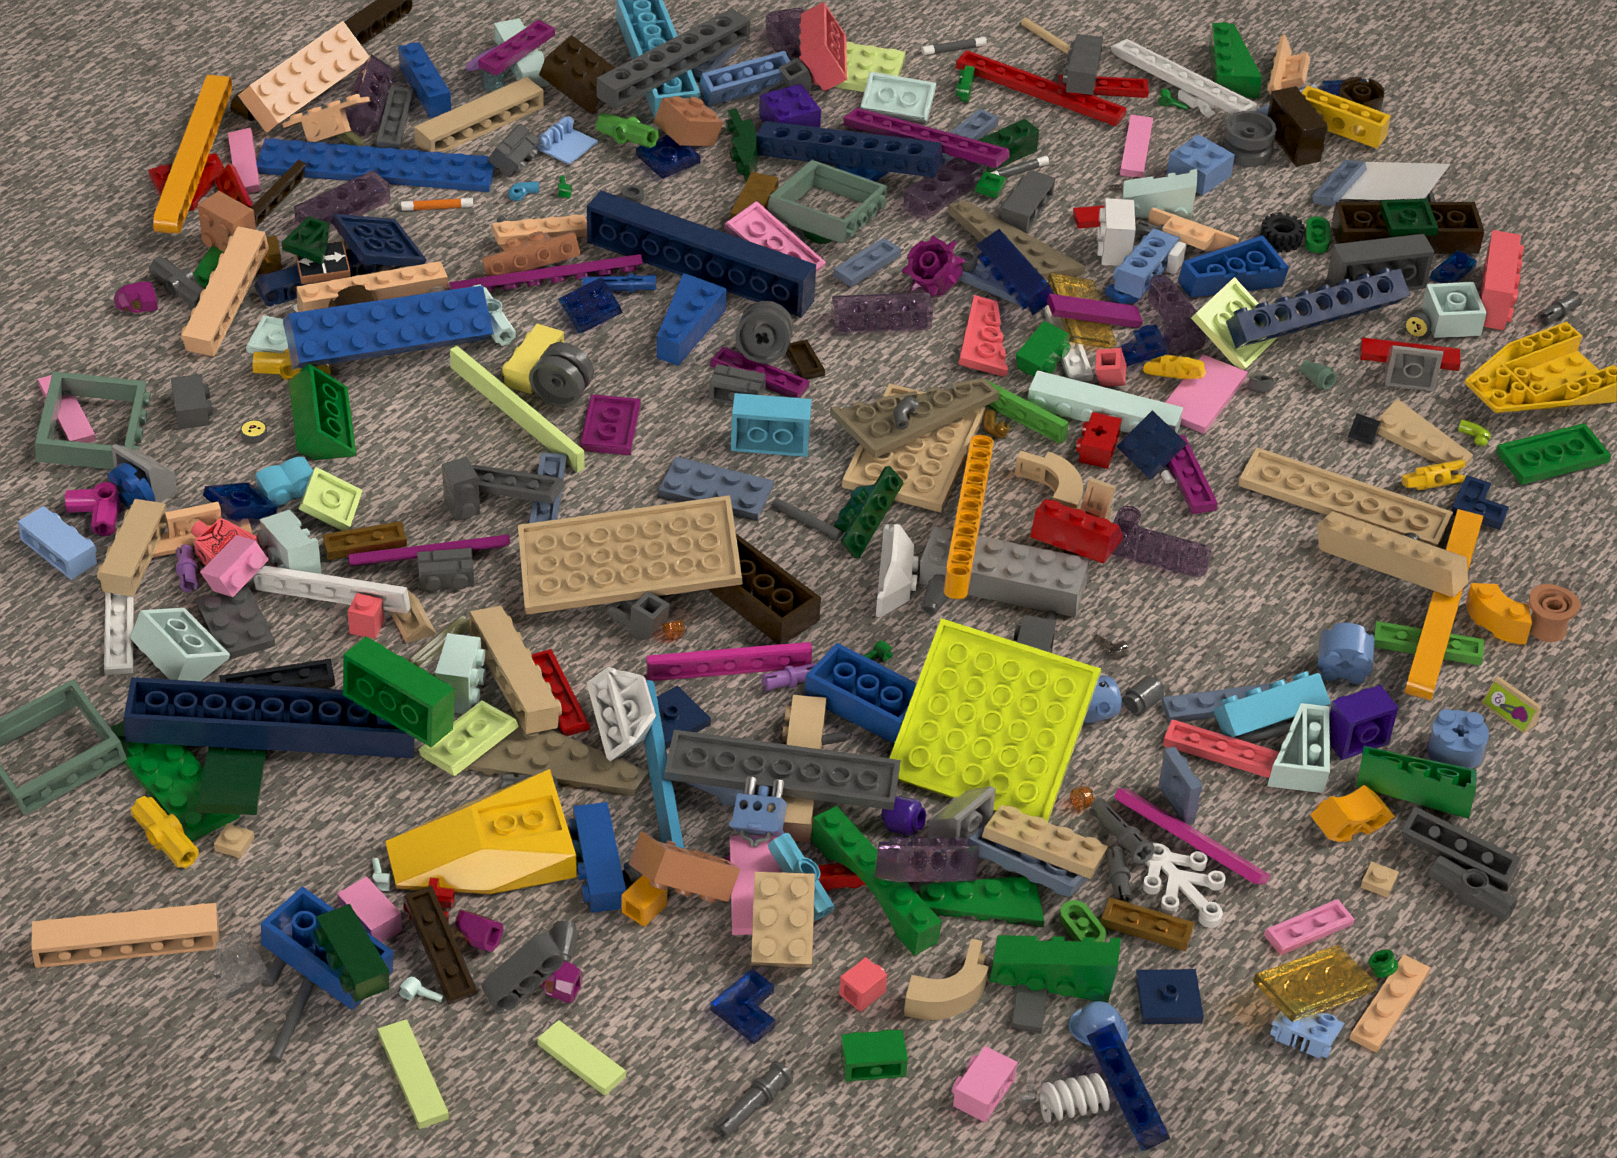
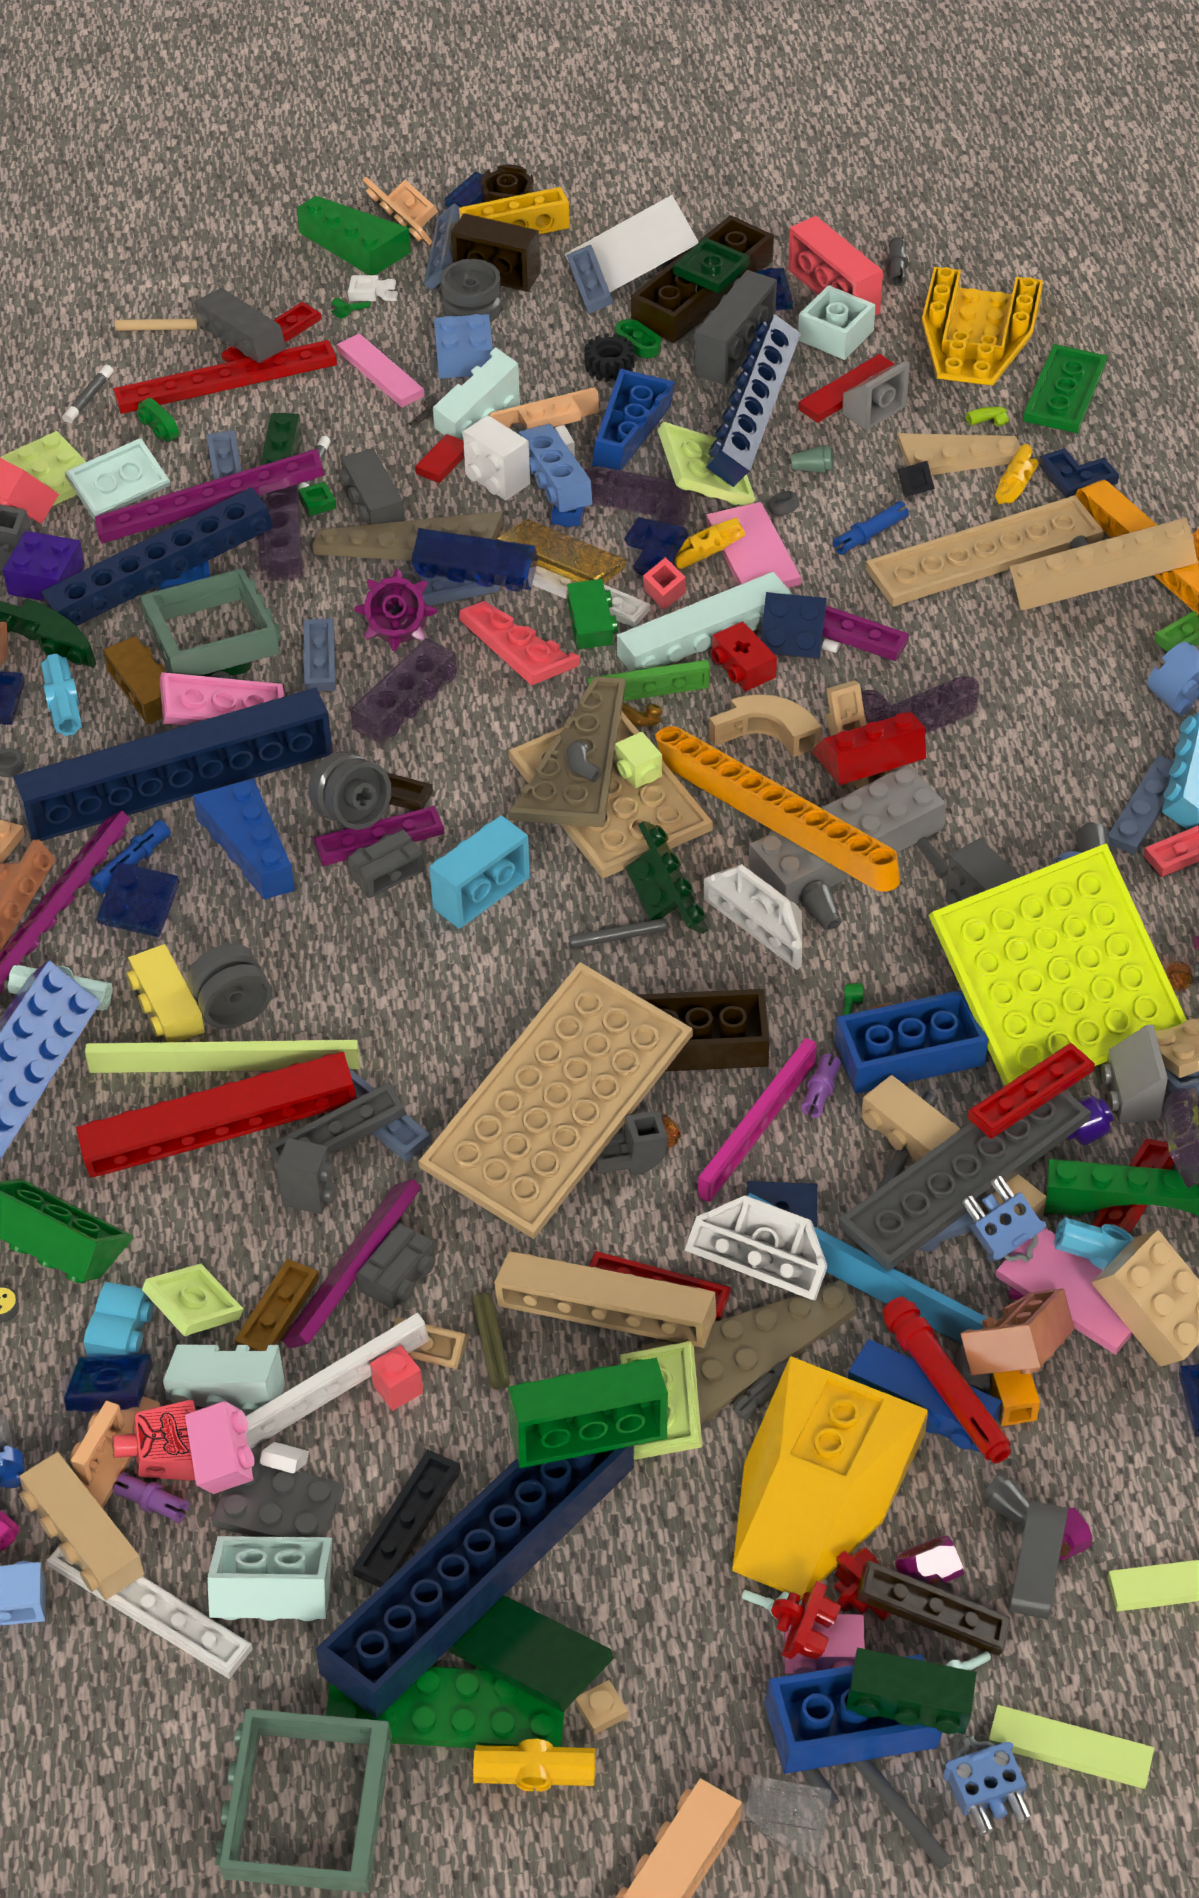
camera: 45 degrees left, 5 degrees up
(266, 604) = (284, 1457): none -> white tile
(345, 1042) = (984, 1769): none -> medium blue piece
(359, 878) = (801, 1617): none -> red hips
(462, 669) = (569, 1340): light aqua brick -> none
(468, 429) = (216, 1114): none -> red brick
(610, 424) = (323, 997): magenta tile -> none
(625, 819) = (917, 1337): none -> red cylinder
(696, 481) = (502, 974): sand blue plate -> none
(704, 181) = (61, 695): none -> medium azure piece
(875, 762) = (1030, 1090): none -> red tile
(942, 438) = (638, 760): none -> yellowish green brick
(1094, 311) = (576, 544): magenta tile -> none
(1115, 650) = (1015, 828): clear smoke hand -> none
(1182, 77) = (337, 277): white tile -> none
(1293, 434) = (862, 532): none -> blue pin
(1418, 324) = (823, 357): tile -> none

